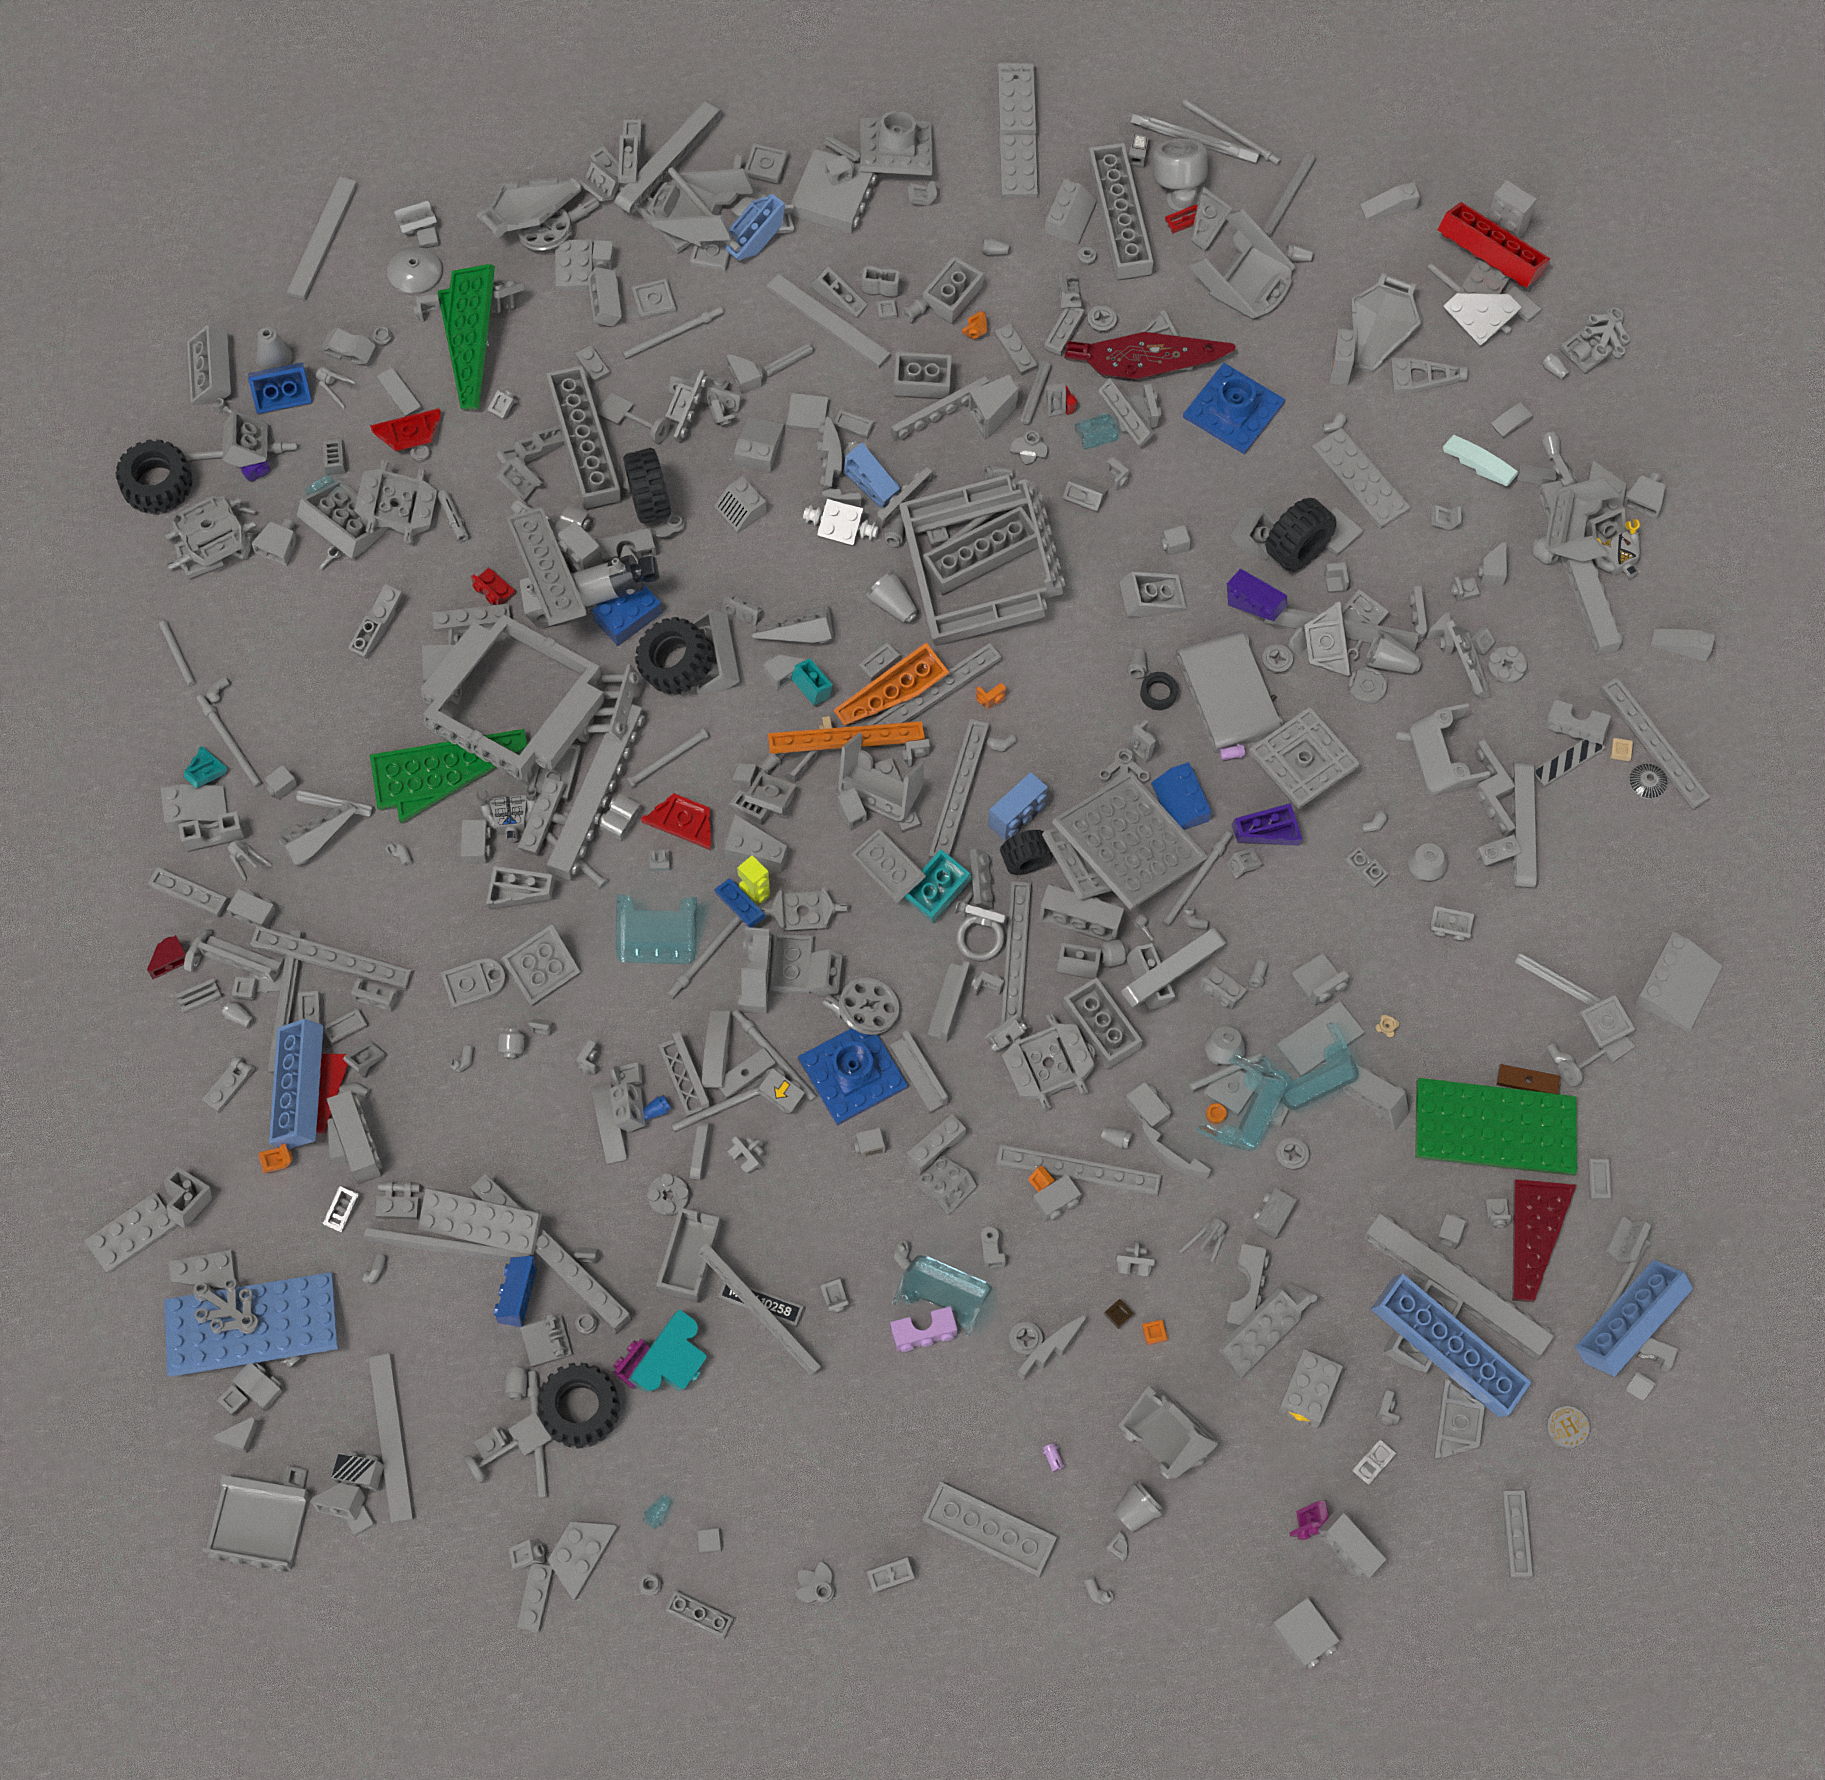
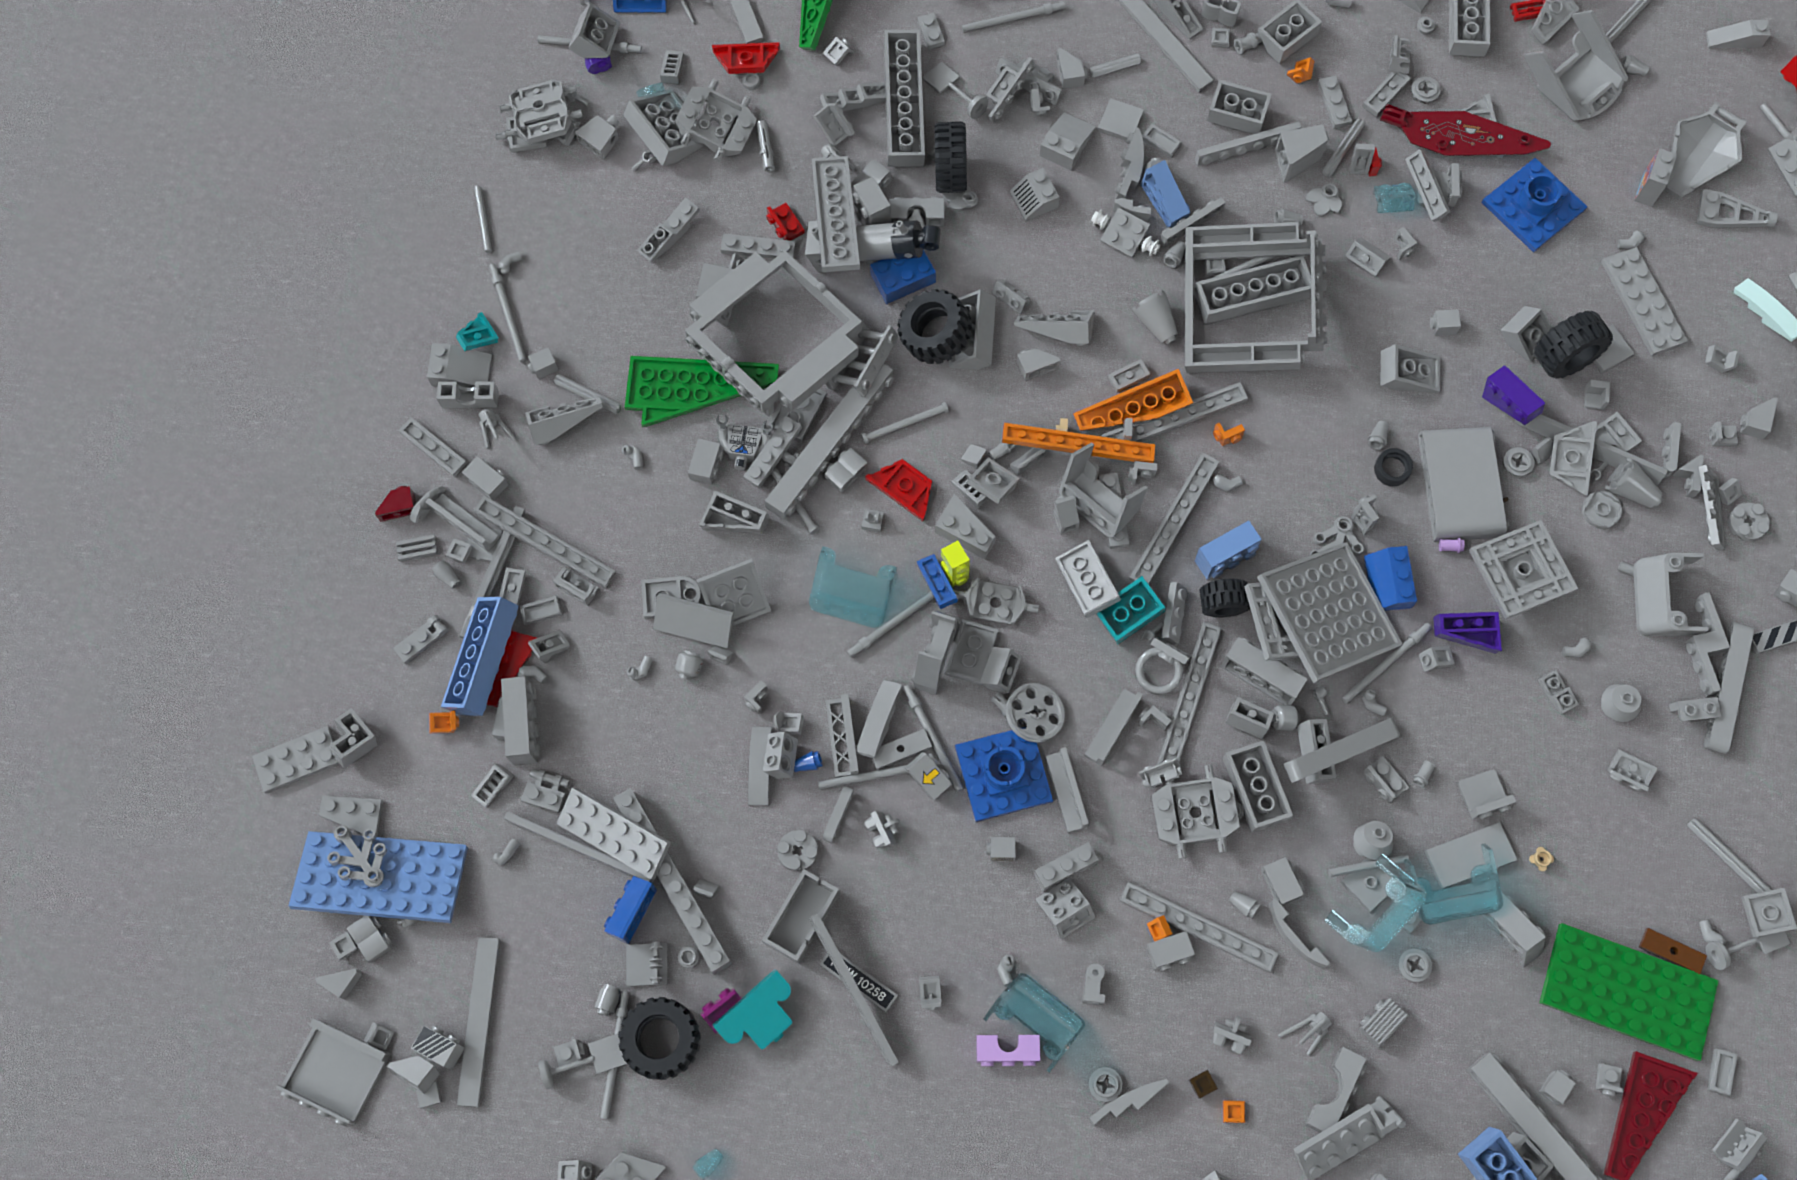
camera: 20 degrees right, 5 degrees up
(146, 457) = (499, 31): black tyre -> none
(504, 998) = (693, 620): none -> light grey tile
(811, 681) = (1059, 381): teal brick -> none
(891, 713) = (1127, 429): none -> light grey tile
(1216, 1113) = (1348, 905): orange tile -> none

